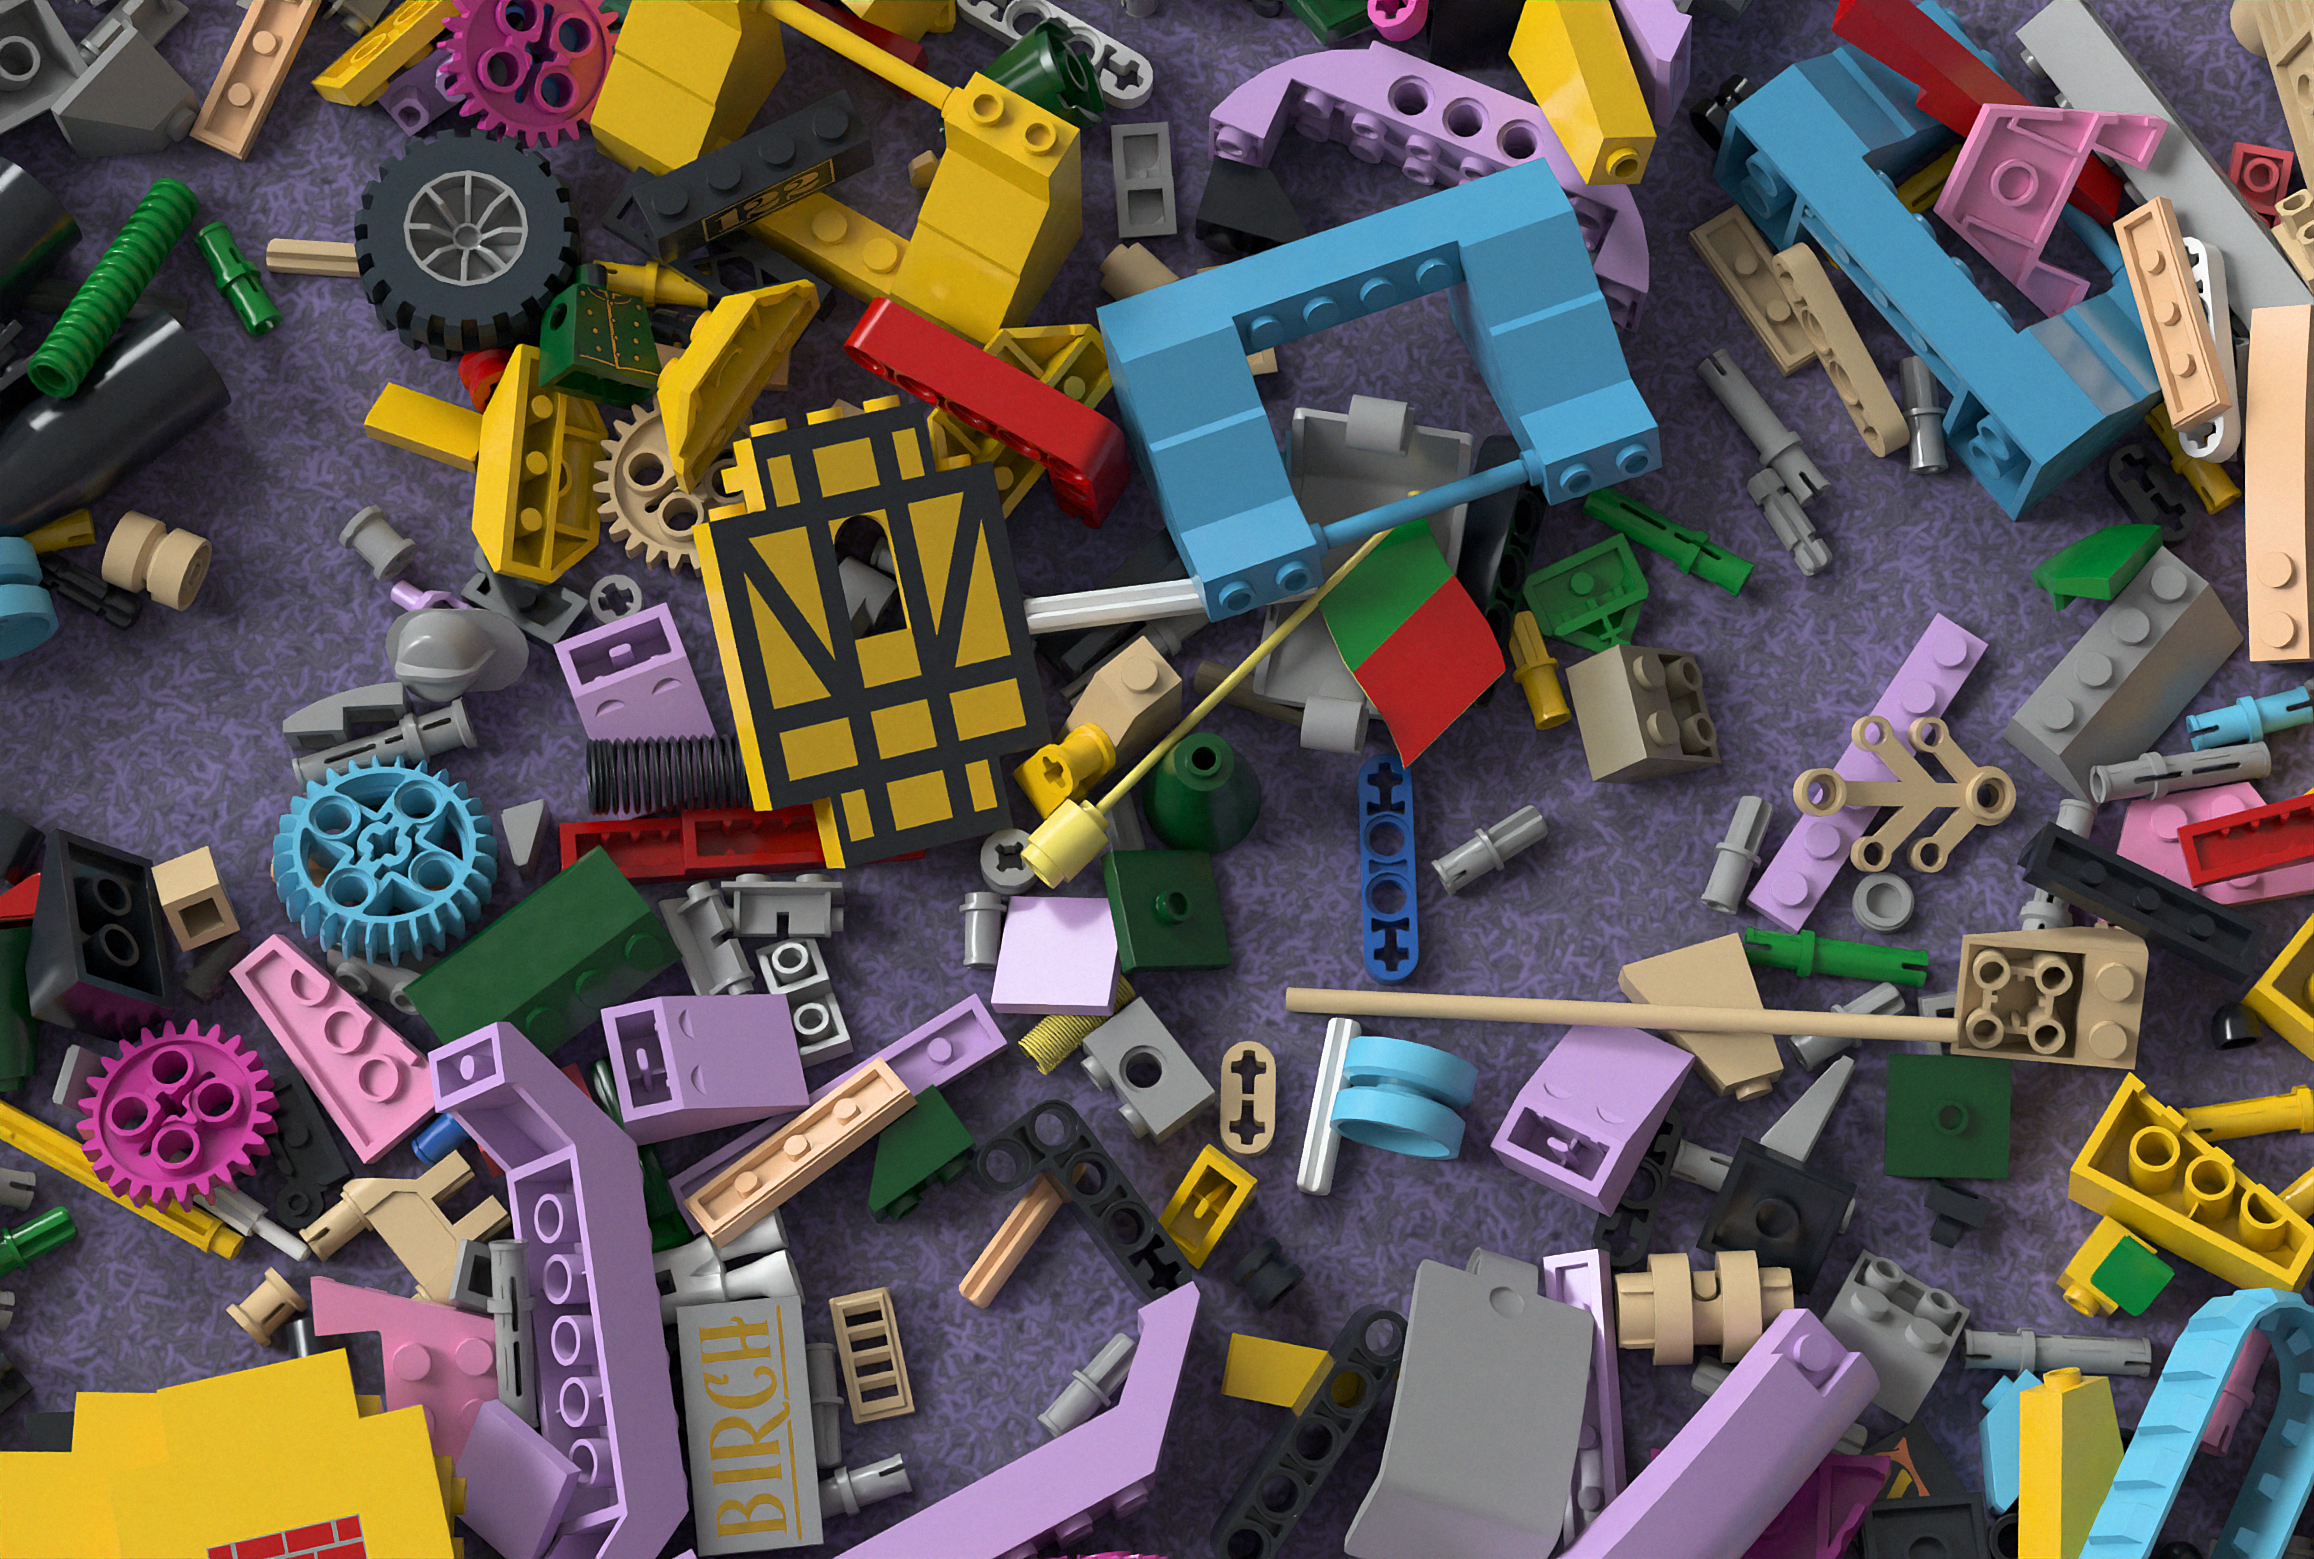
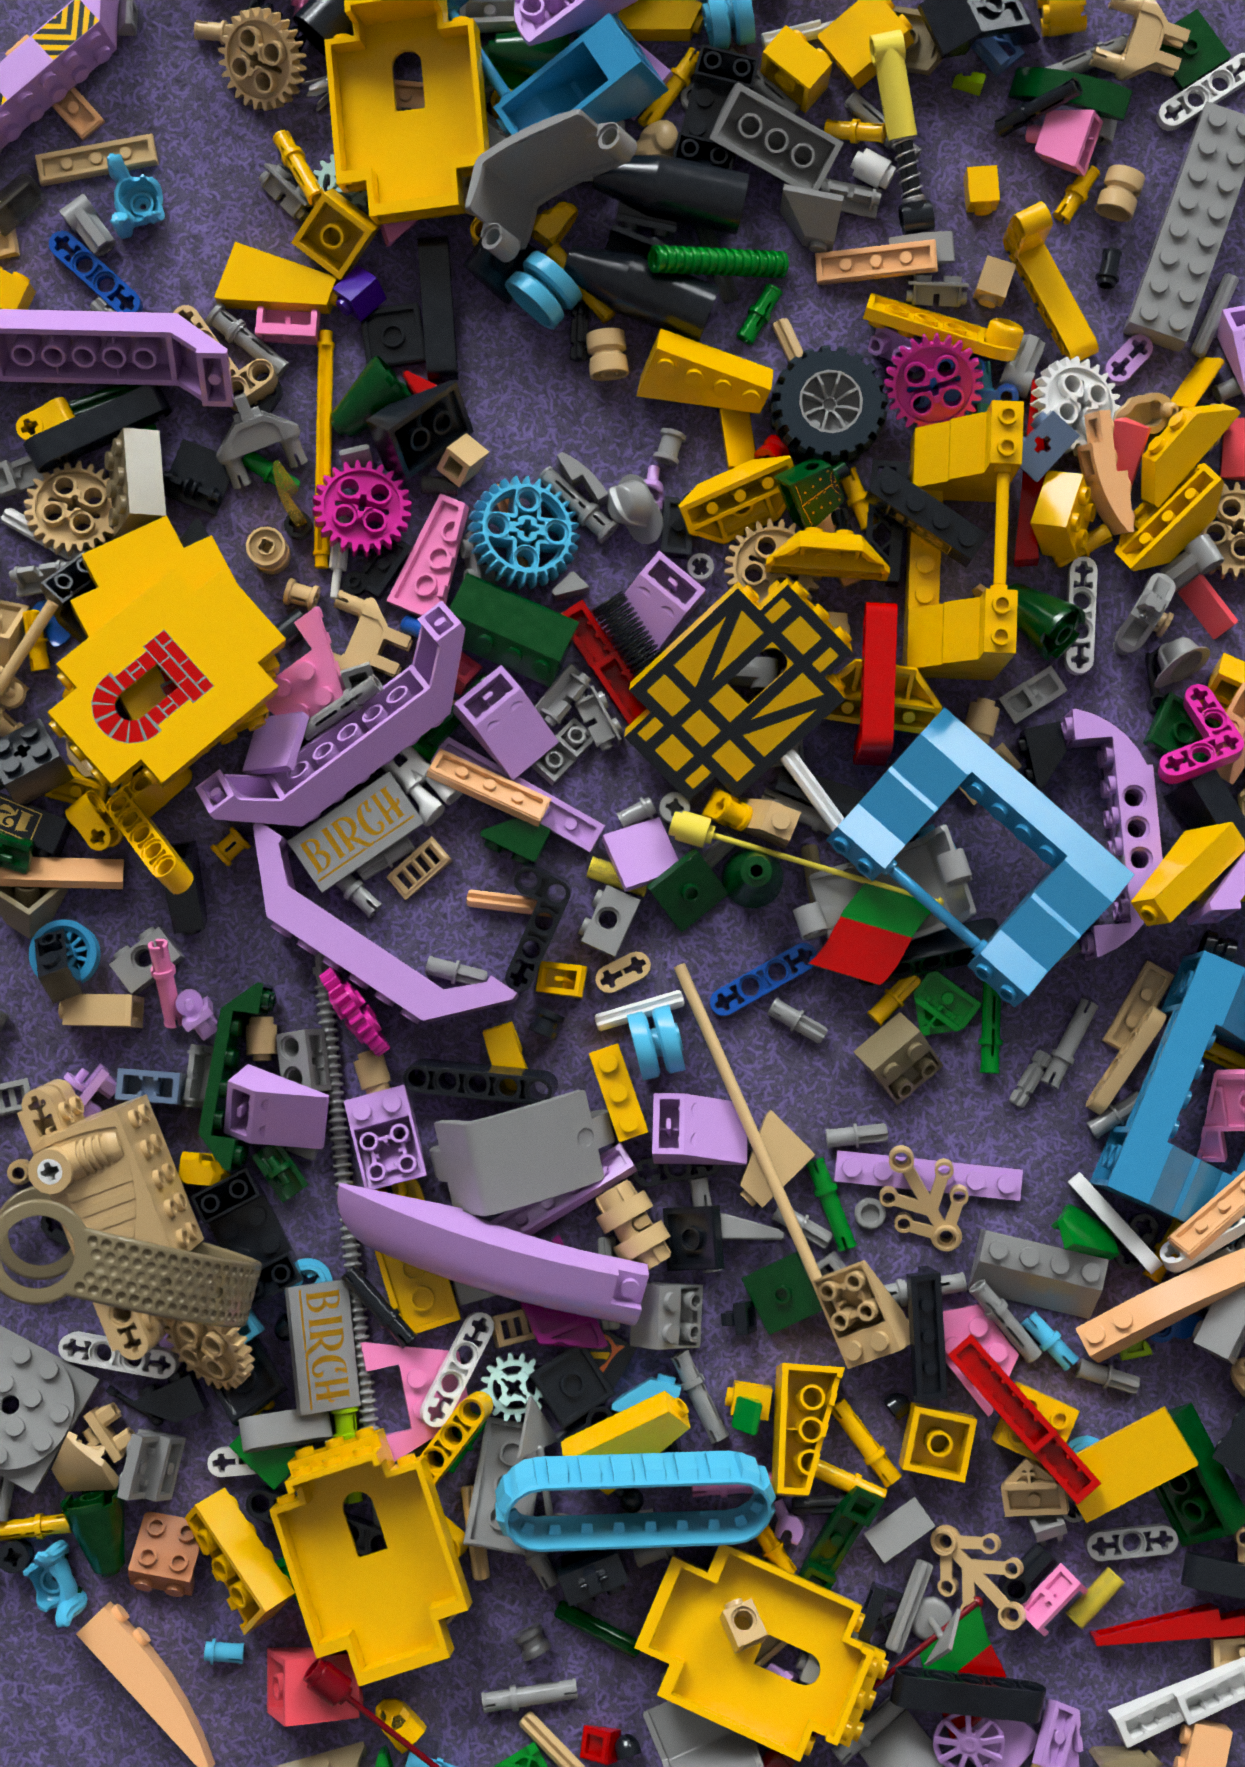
camera: 65 degrees right, 10 degrees up
(60, 1227) = (286, 488): none -> clear yellow slope
(137, 1268) = (304, 533): none -> black bush
(154, 1321) = (268, 550): none -> tan wheel
(289, 421) = (703, 375): none -> yellow wedge
(1431, 1205) = (618, 1092): none -> yellow arch
(2104, 507) = (1115, 1223): none -> white beam

